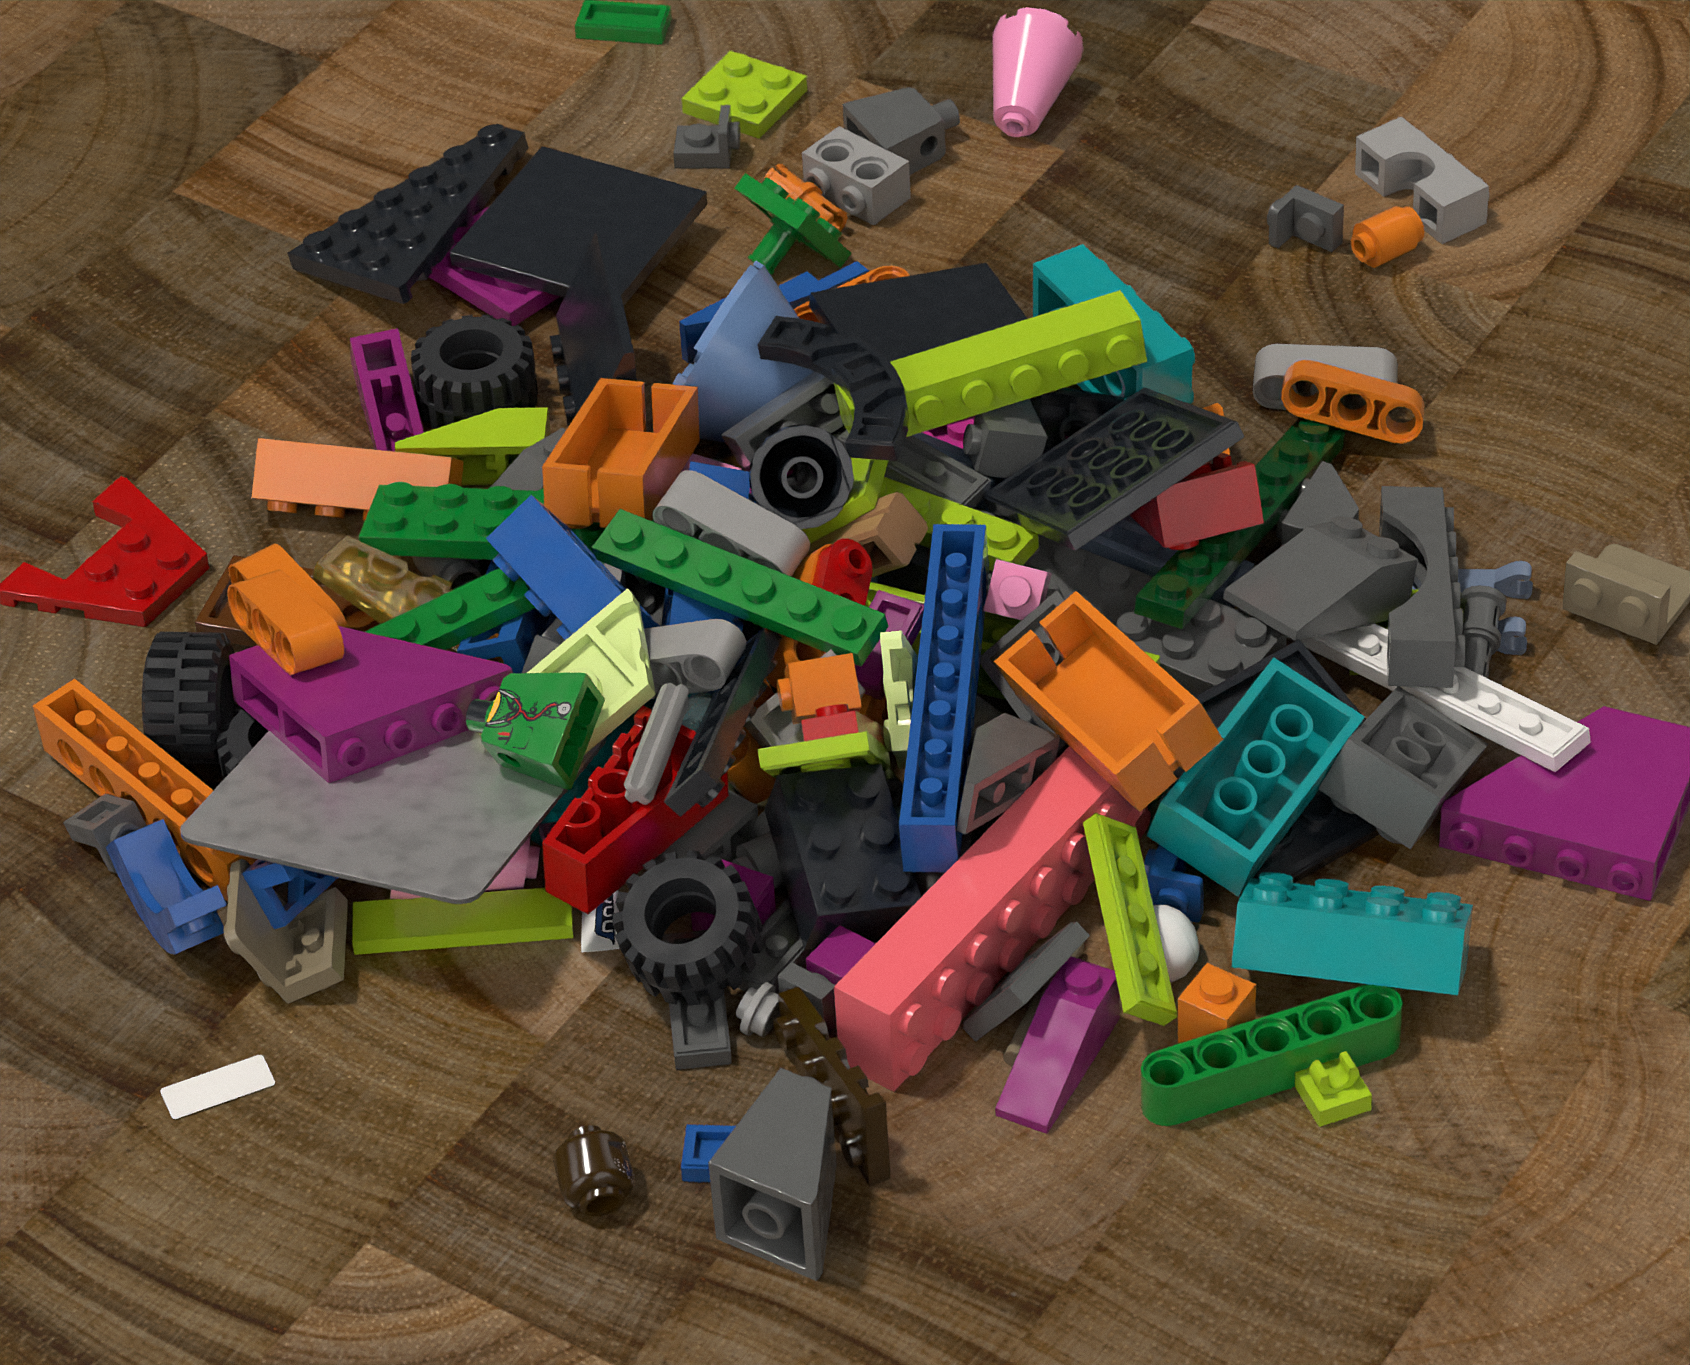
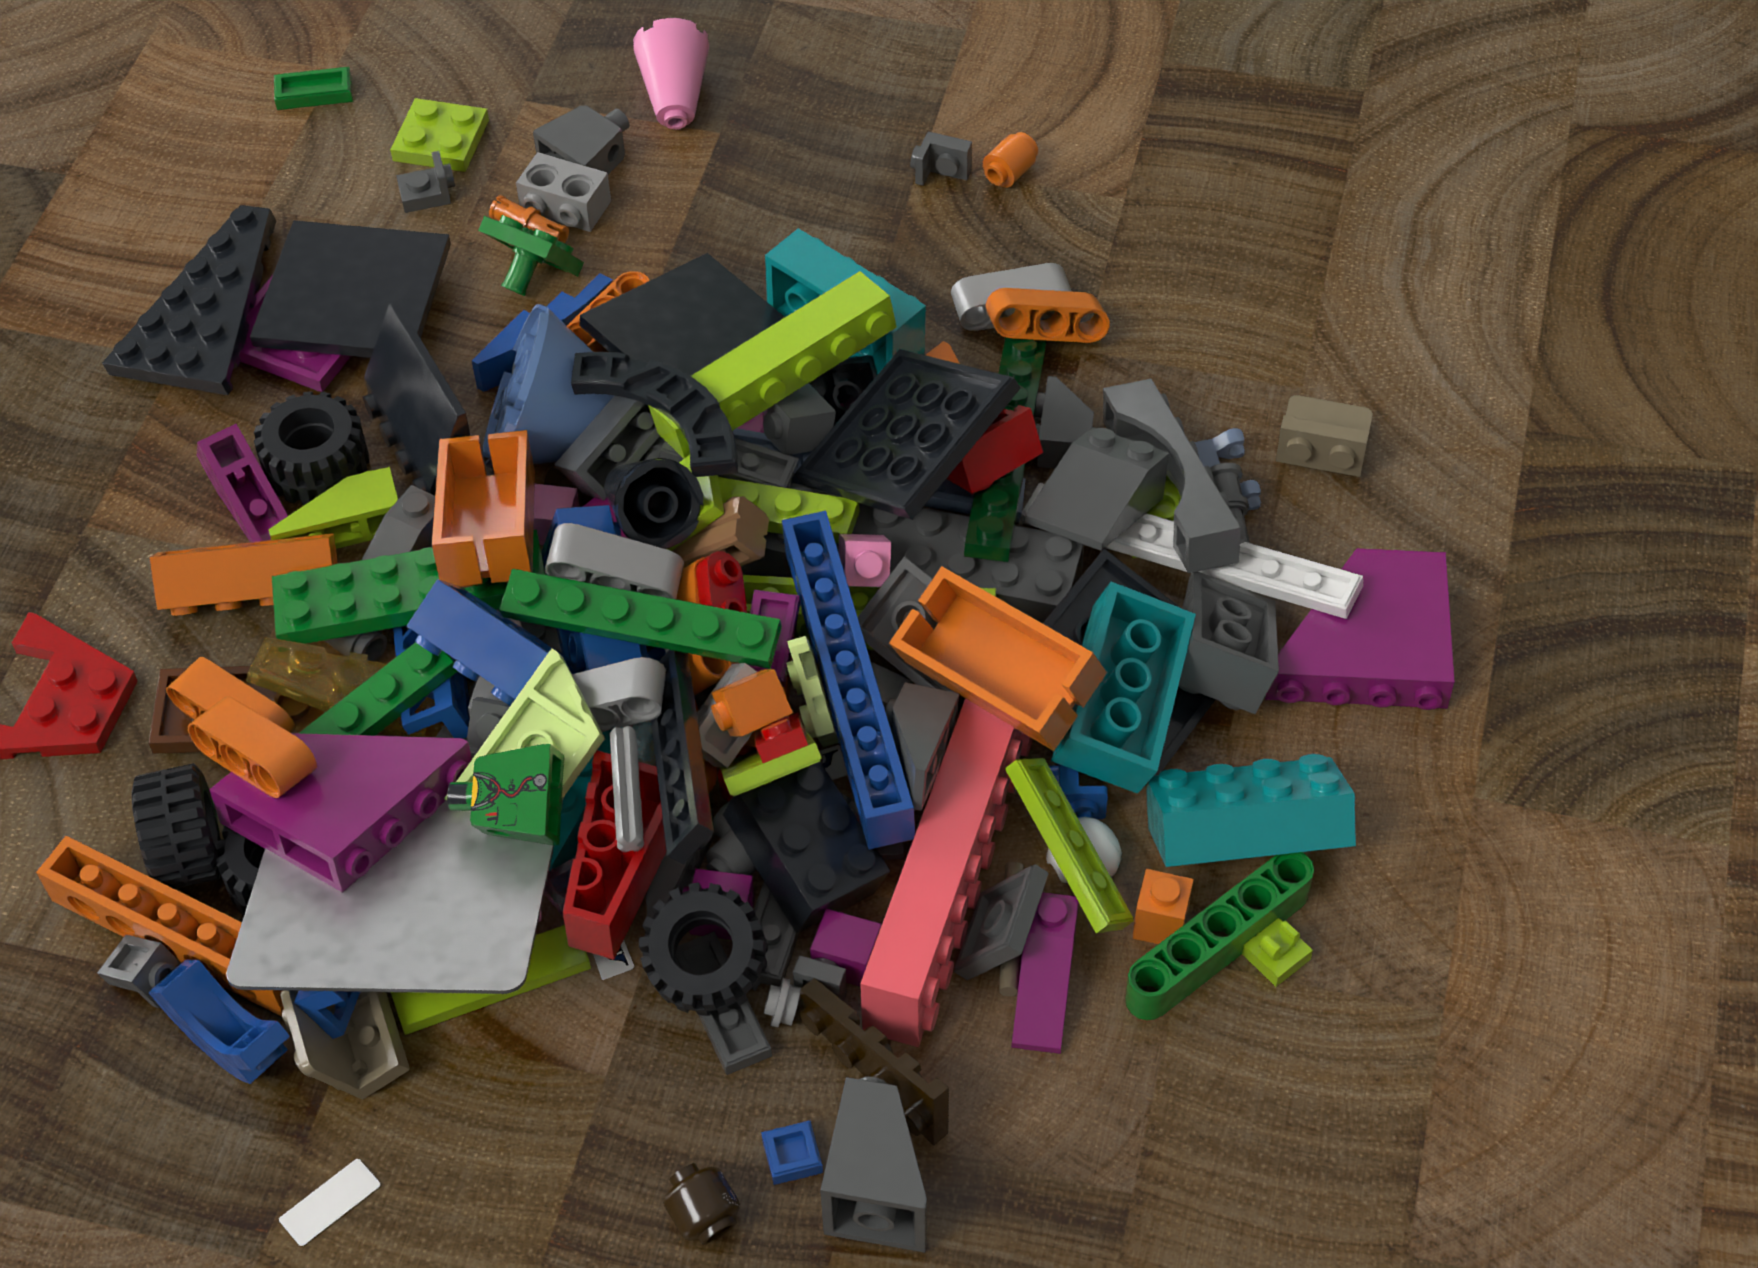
camera: 20 degrees left, 10 degrees up
(1445, 191) = (996, 89): light grey arch -> none

